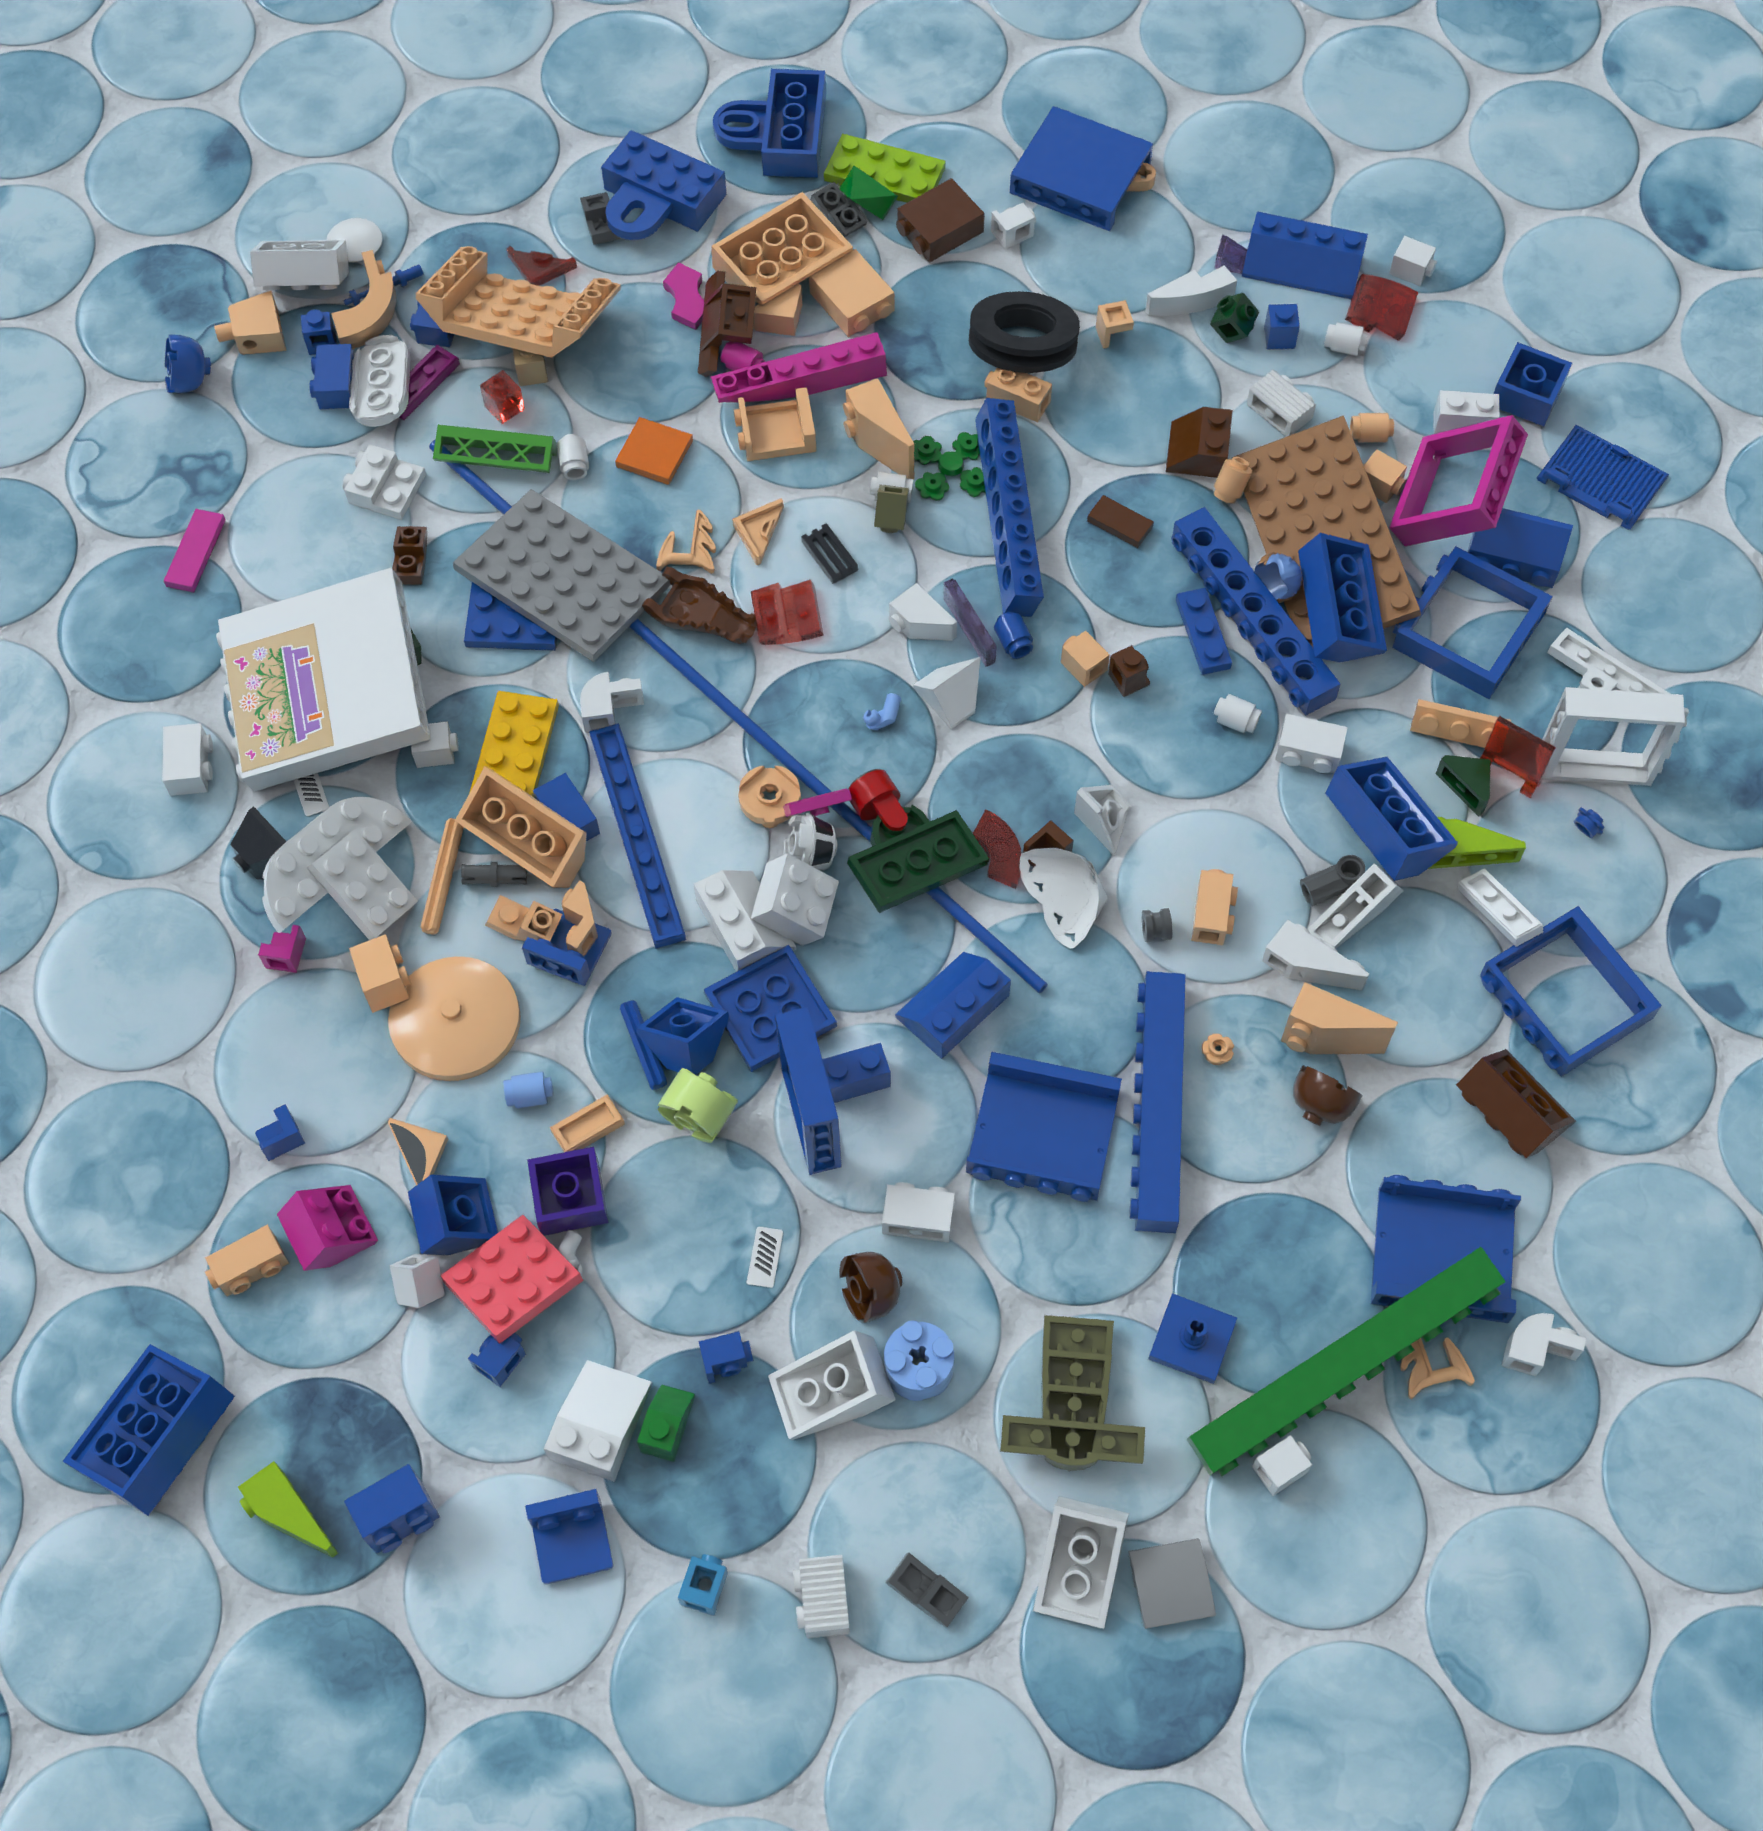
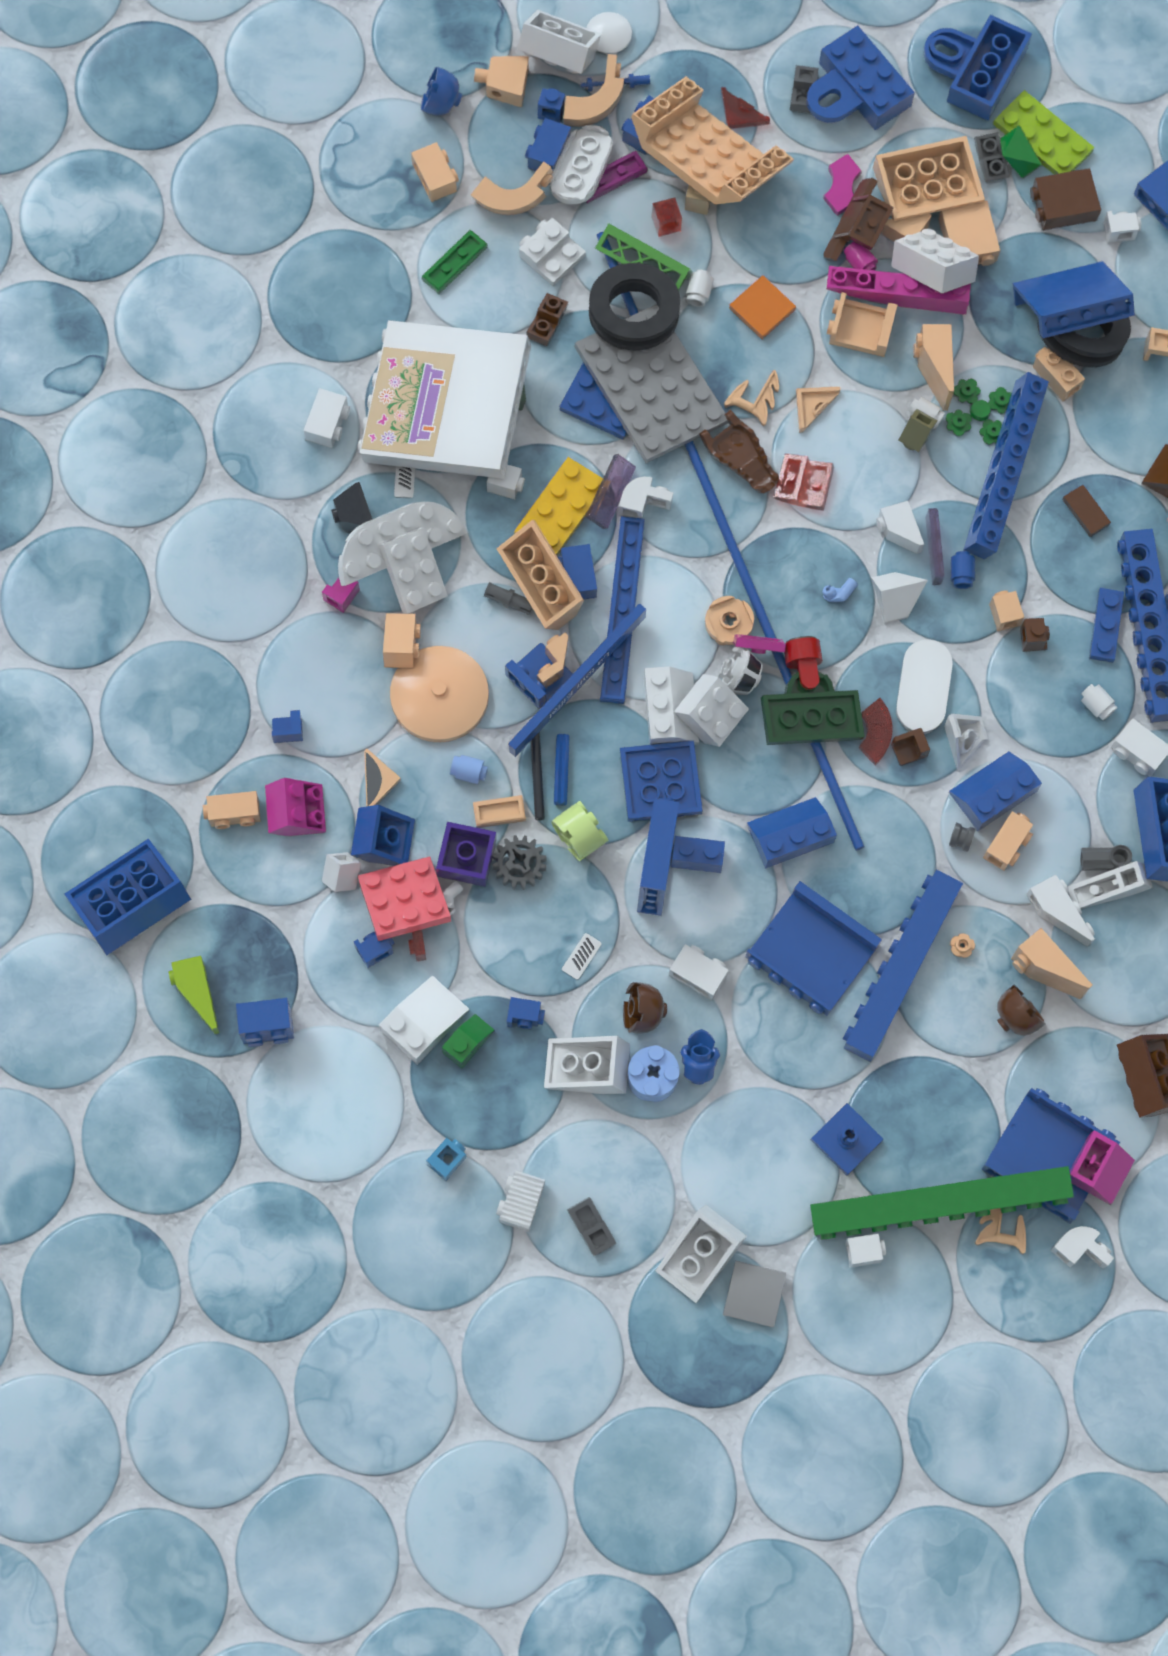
camera: 20 degrees right, 10 degrees up
(194, 550) = (393, 250): dark pink tile -> none
(210, 449) = (434, 171): none -> light nougat brick
(273, 535) = (454, 261): none -> green tile
(317, 444) = (513, 200): none -> light nougat arch
(441, 877) = (471, 584): light nougat axle -> none
(515, 525) = (634, 278): none -> black tyre
(523, 922) = (514, 643): light nougat slope -> none
(552, 1330) = (417, 946): none -> clear red plate
(565, 709) = (610, 491): none -> clear purple tile
(570, 1536) = (373, 1089): blue bracket -> none
(614, 1060) = (537, 778): none -> black piece
(616, 933) = (577, 680): none -> blue tile
(638, 1160) = (527, 856): none -> dark grey gear
(684, 1034) = (592, 775): blue slope -> none
(808, 542) = (853, 427): black tile -> none
(827, 324) = (935, 260): none -> white brick
(967, 1315) = (700, 1057): none -> blue head
(1003, 304) = (1075, 298): none -> blue panel
(1030, 776) = (924, 686): none -> white tile
(1066, 891) = (911, 784): white piece -> none
(1074, 1401) = (745, 1146): olive slope -> none
(1169, 856) = (995, 789): none -> blue slope
(1513, 1234) = (1101, 1167): none -> dark pink slope

